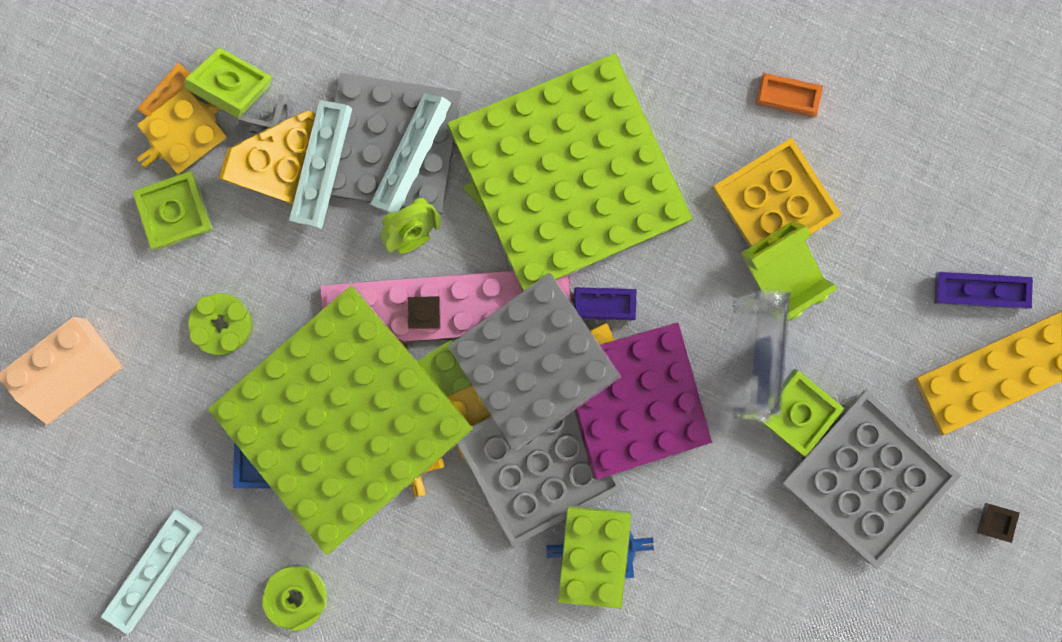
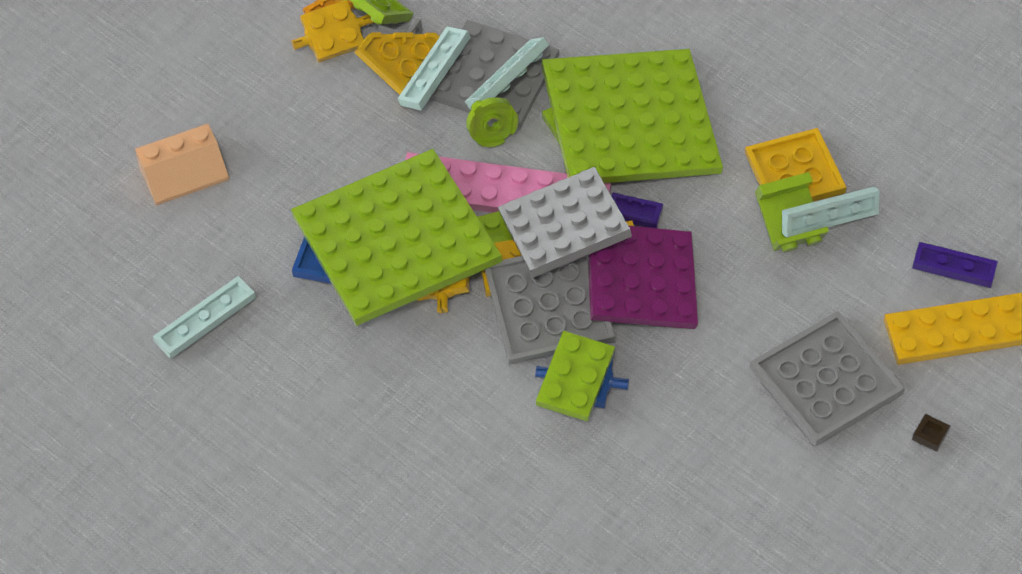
camera: 15 degrees right, 30 degrees down
(172, 210) = (306, 81): lime plate -> none
(210, 309) = (315, 151): lime plate -> none
(290, 615) = (315, 374): lime plate -> none
(424, 313) = (485, 181): dark brown plate -> none
(769, 353) = (740, 268): clear panel -> none
(789, 95) = (824, 105): orange tile -> none
(804, 413) = (777, 315): lime plate -> none
(839, 254) = (830, 211): none -> light aqua plate

